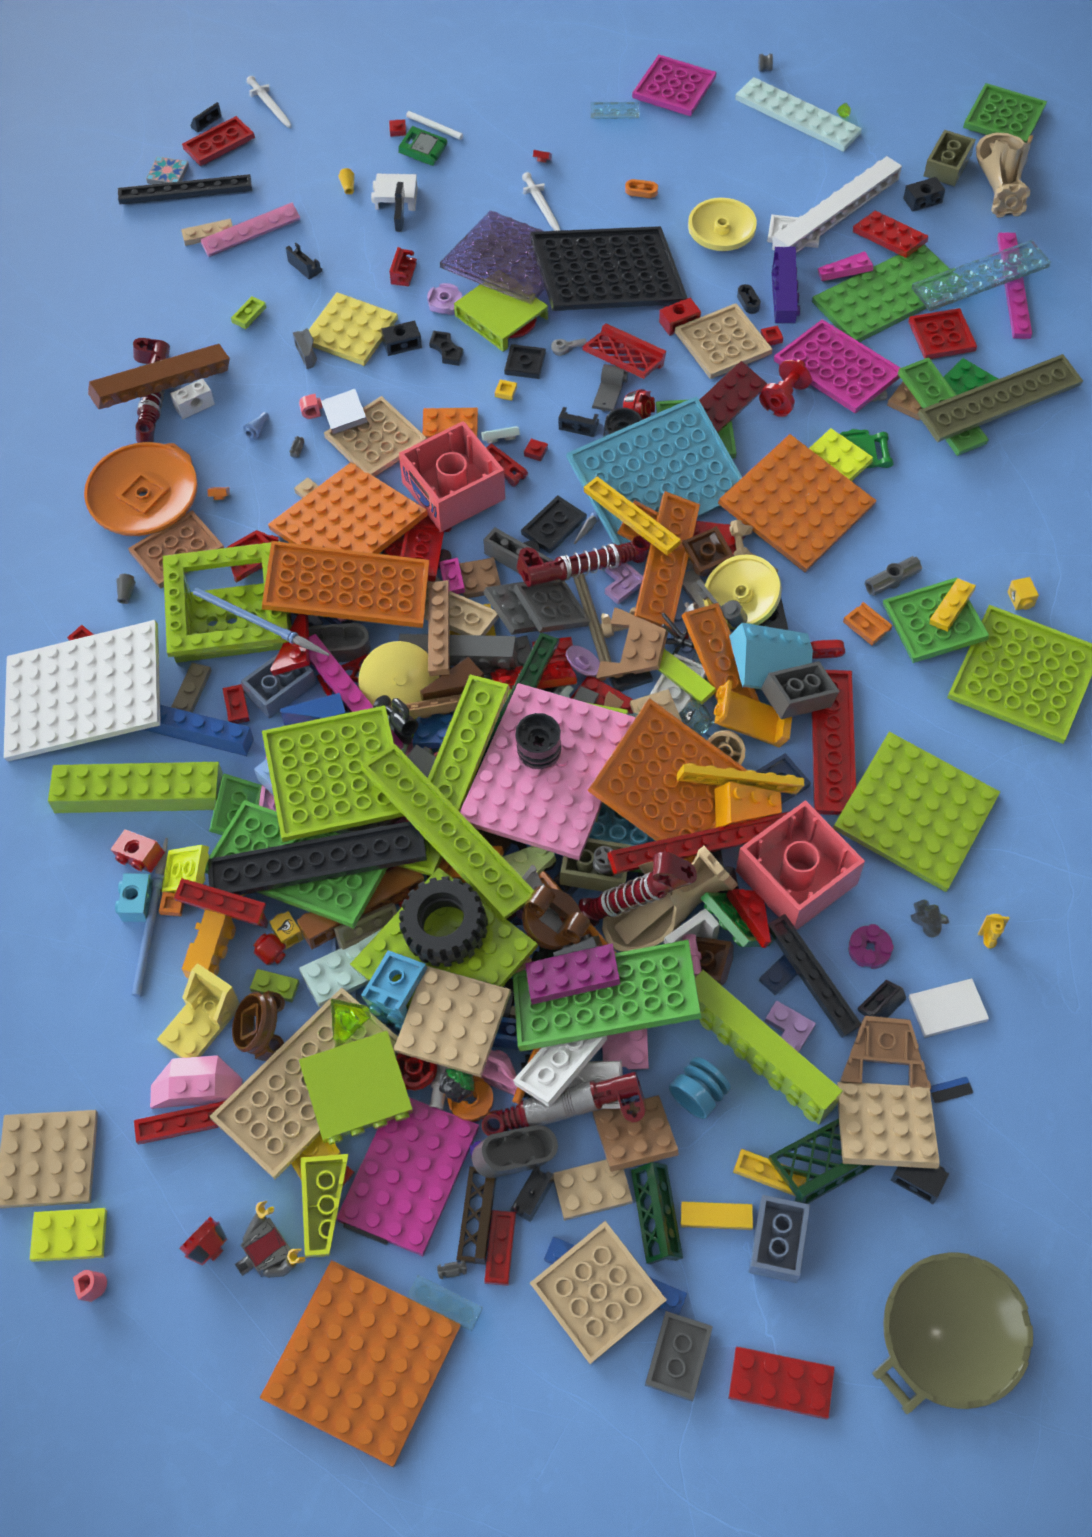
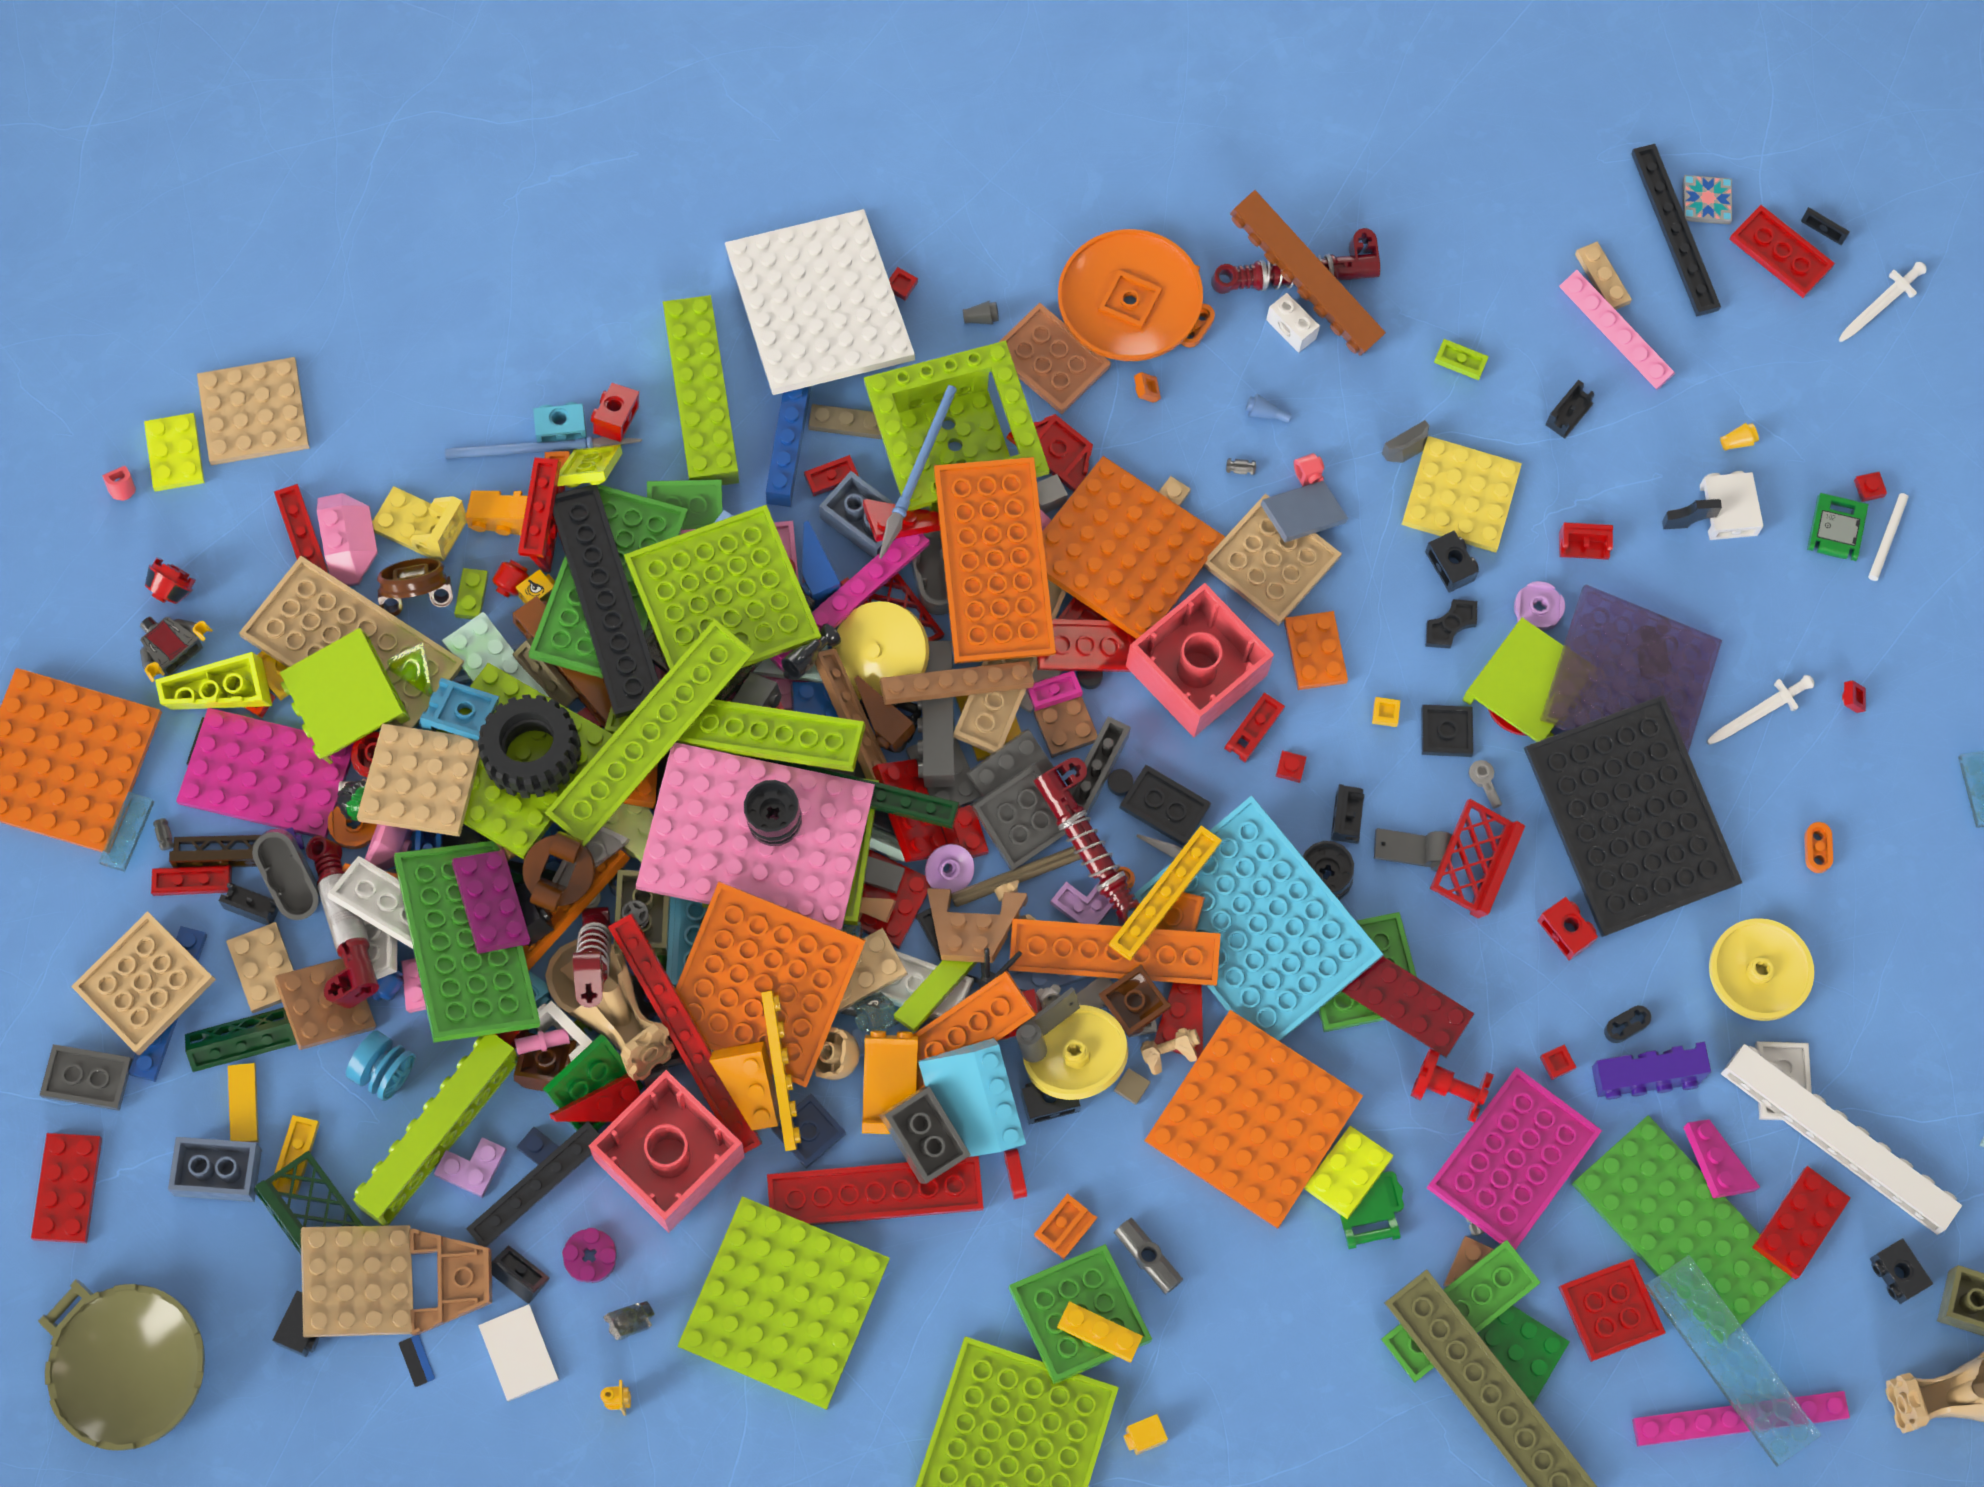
camera: 75 degrees right, 10 degrees up
(493, 435) = (1306, 715): light aqua plate -> none
(640, 402) = (1379, 889): red cone -> none
(723, 340) = (1535, 994): tan plate -> none

